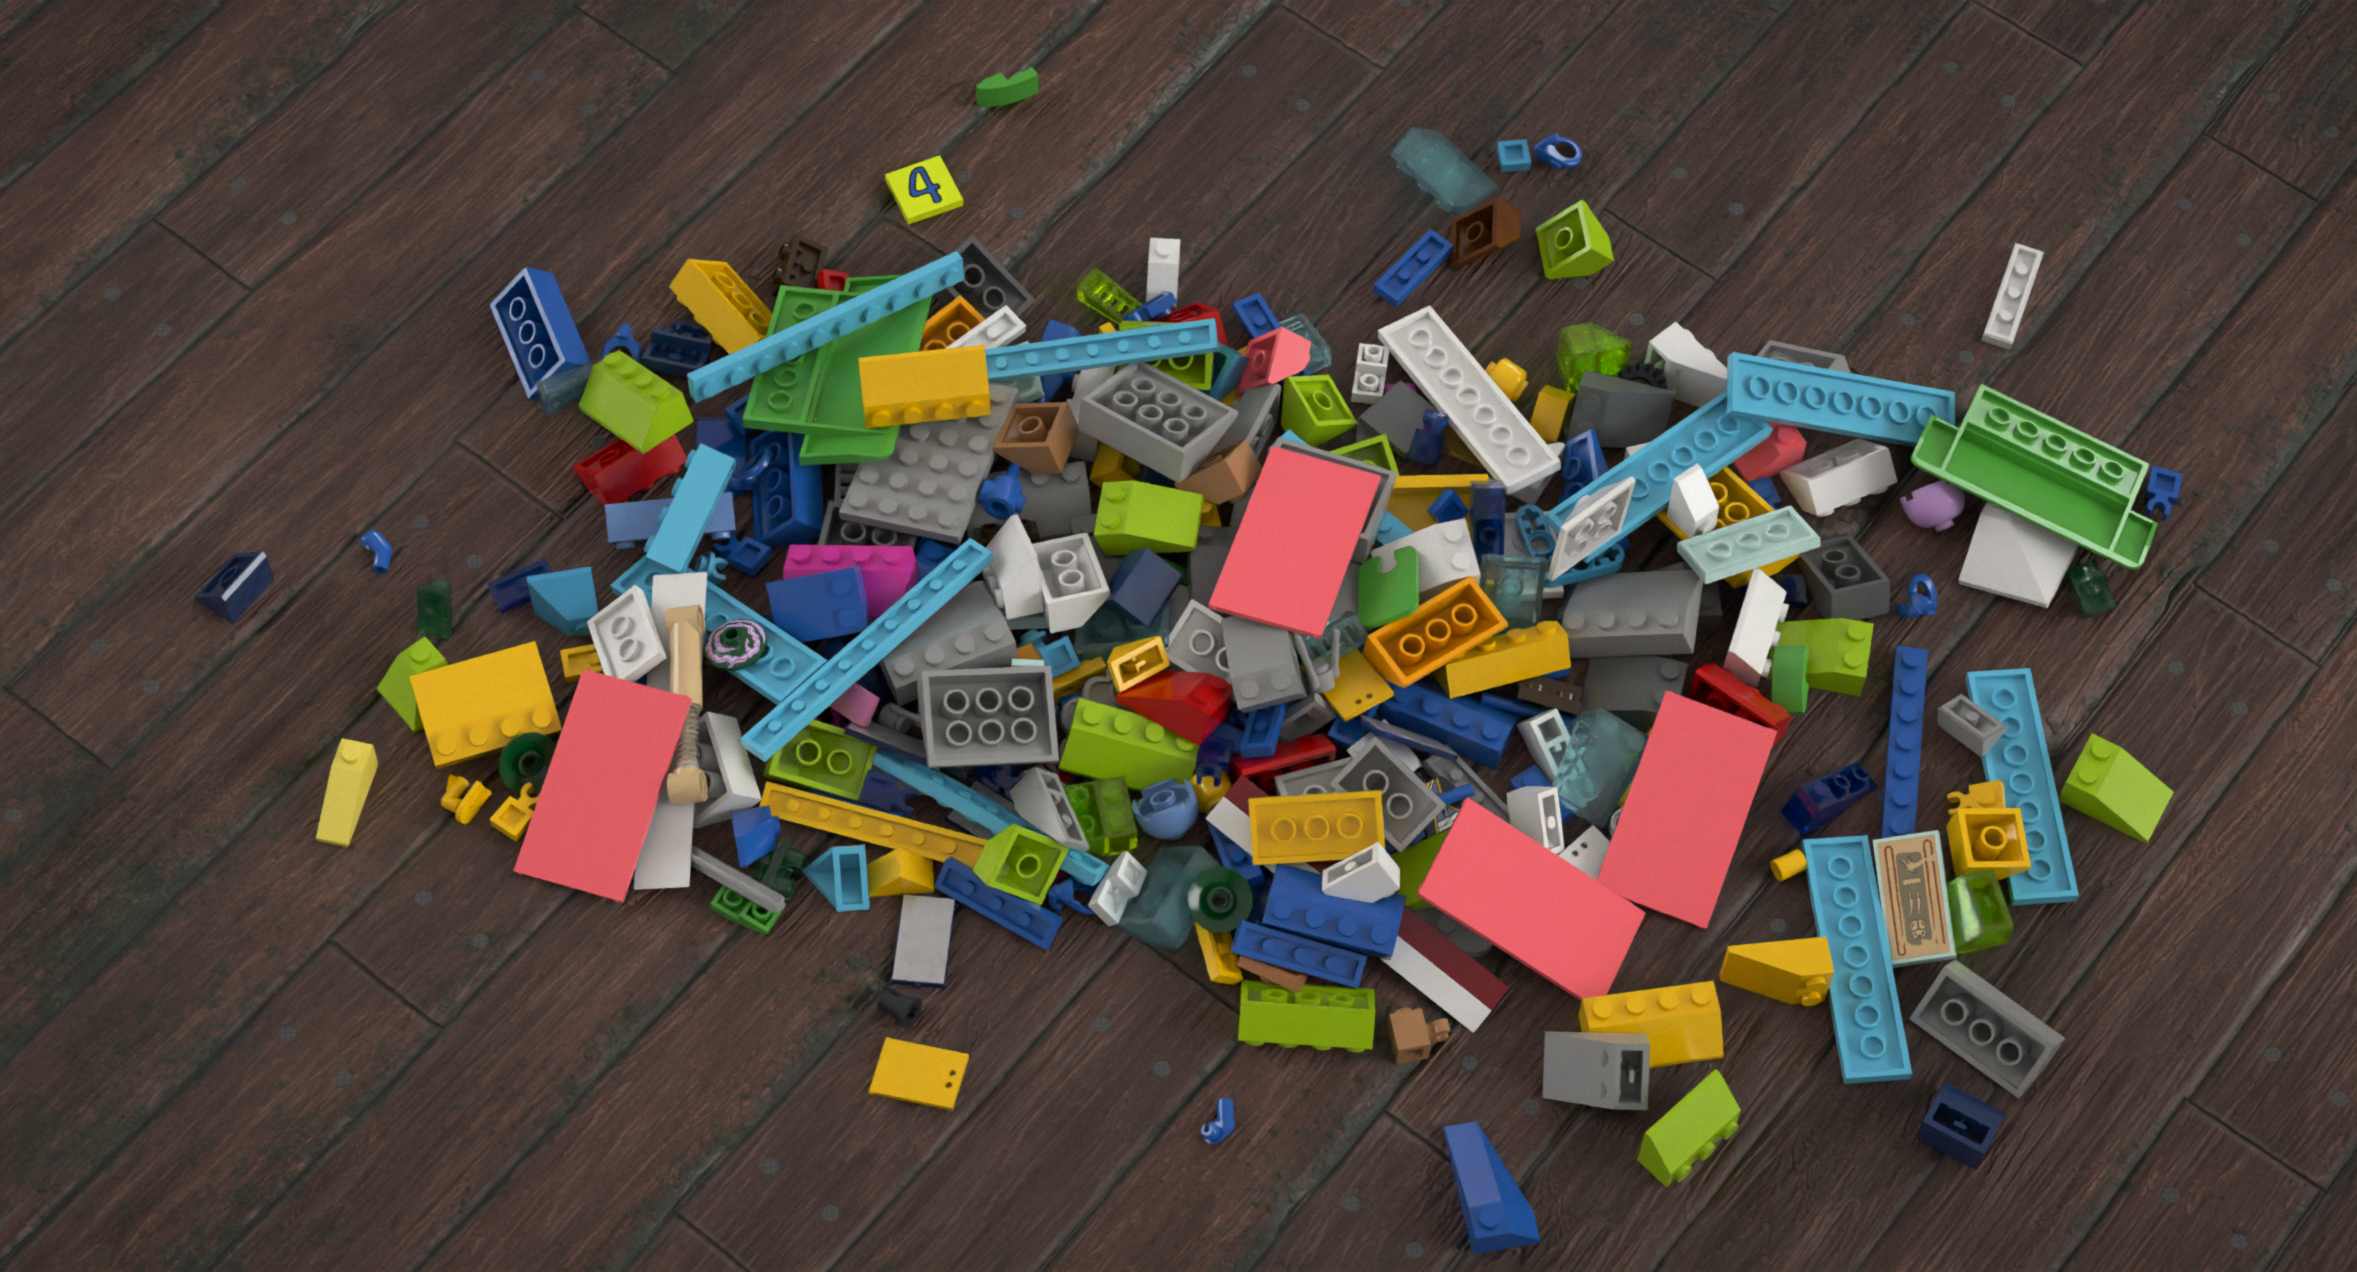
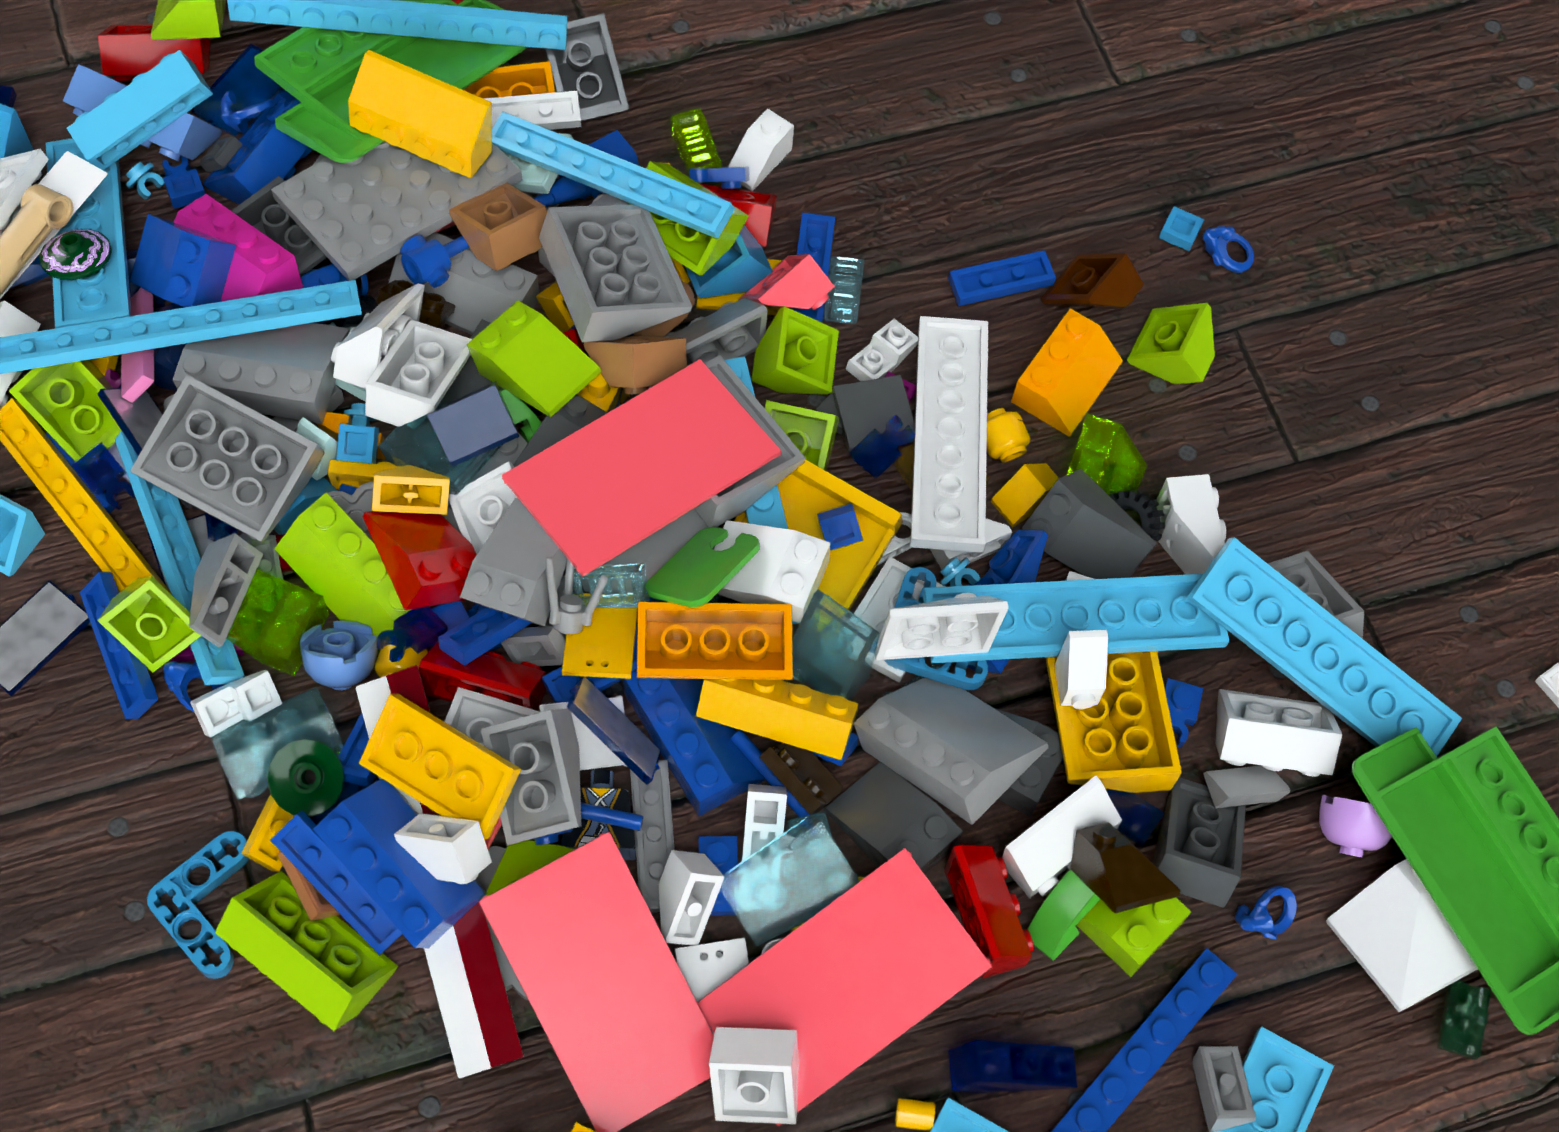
camera: 30 degrees right, 5 degrees up
(754, 514) = (220, 154): none -> dark grey tile
(900, 873) = (61, 562): yellow slope -> none
(1192, 1035) = (188, 895): none -> dark azure beam
(1223, 1125) = (135, 1010): blue arm -> none
(1412, 1036) = (388, 1041): medium nougat brick -> none
(1442, 170) = (1101, 202): clear light blue slope -> none
(1487, 517) = (866, 560): clear blue slope -> none
(1514, 310) = (1067, 373): none -> light orange slope
(1548, 495) = (956, 570): none -> medium azure plate
(1672, 901) = (755, 1075): none -> white slope
(1748, 544) = (1111, 747): light aqua tile -> none
(1772, 455) = (1224, 668): coral slope -> none
(1808, 622) = (1118, 870): none -> dark brown slope
(1846, 524) = (1245, 786): none -> light grey slope

